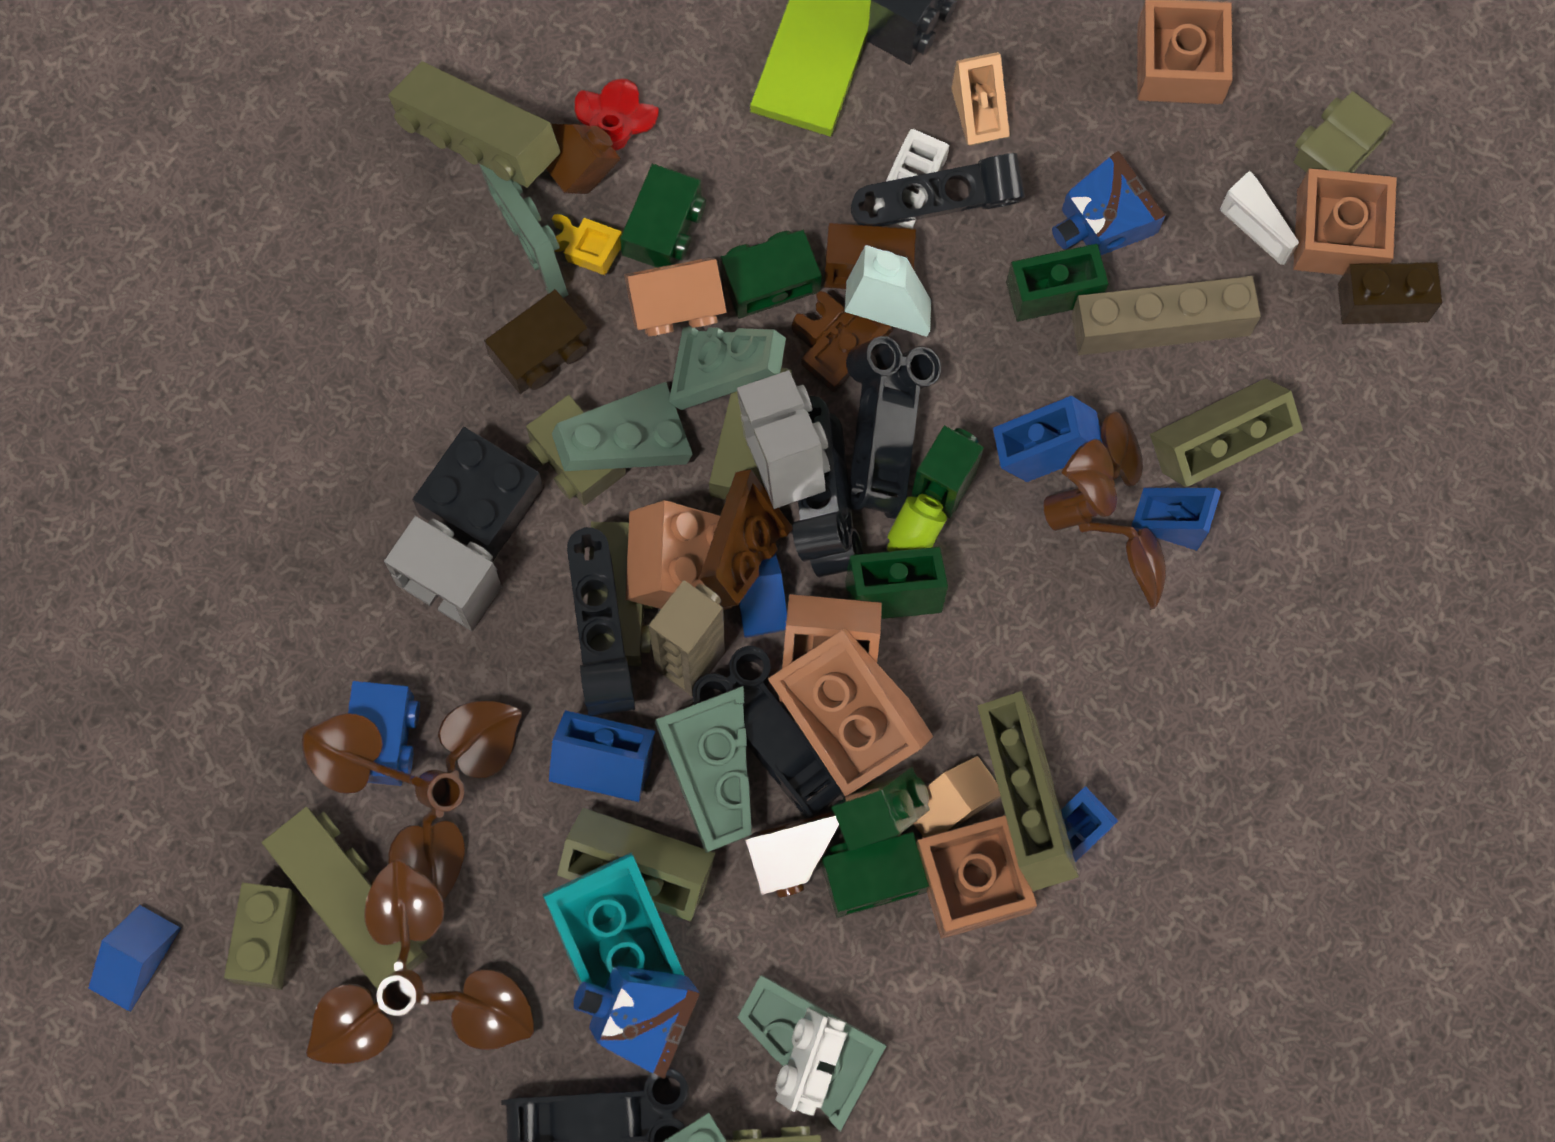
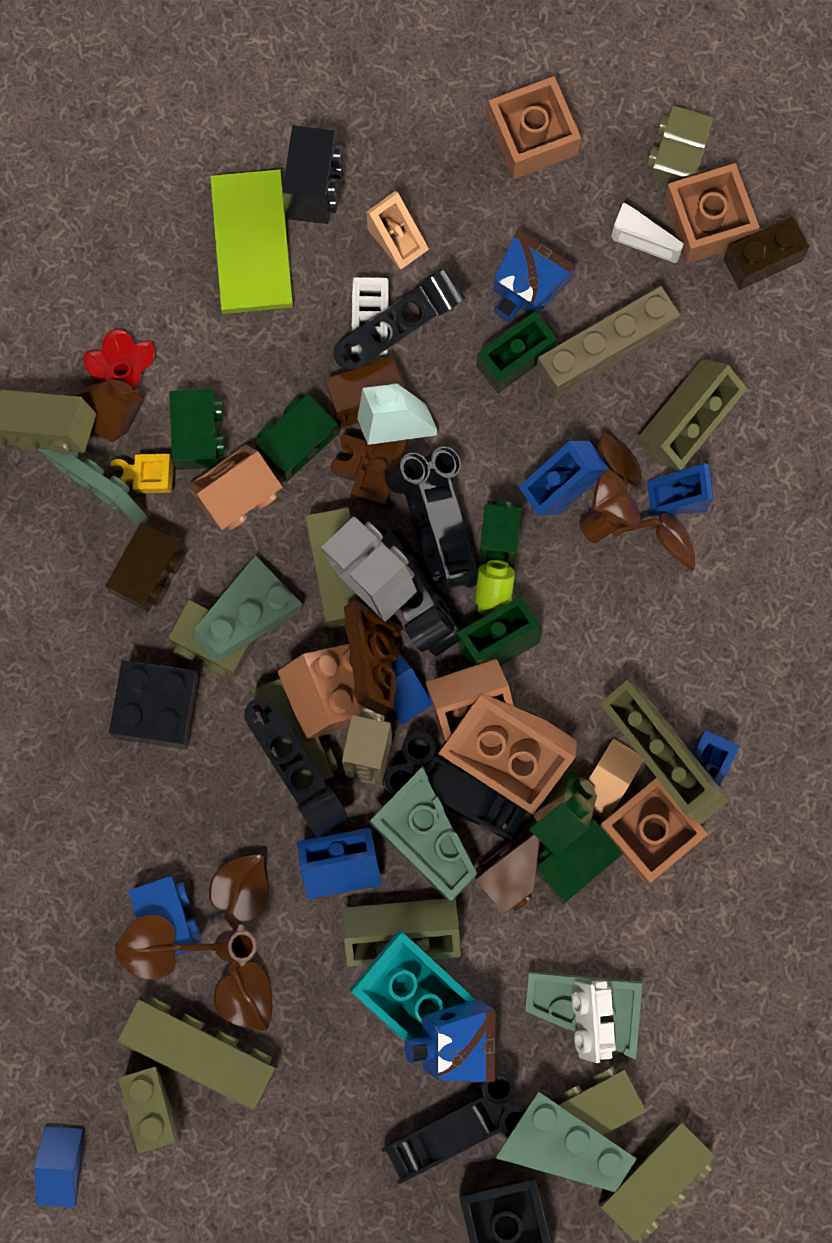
camera: 20 degrees left, 5 degrees up
(407, 908) = (246, 1043): reddish brown plant -> none
(434, 564) = (149, 775): light grey piece -> none
(720, 362) = (296, 525): sand green wing -> none

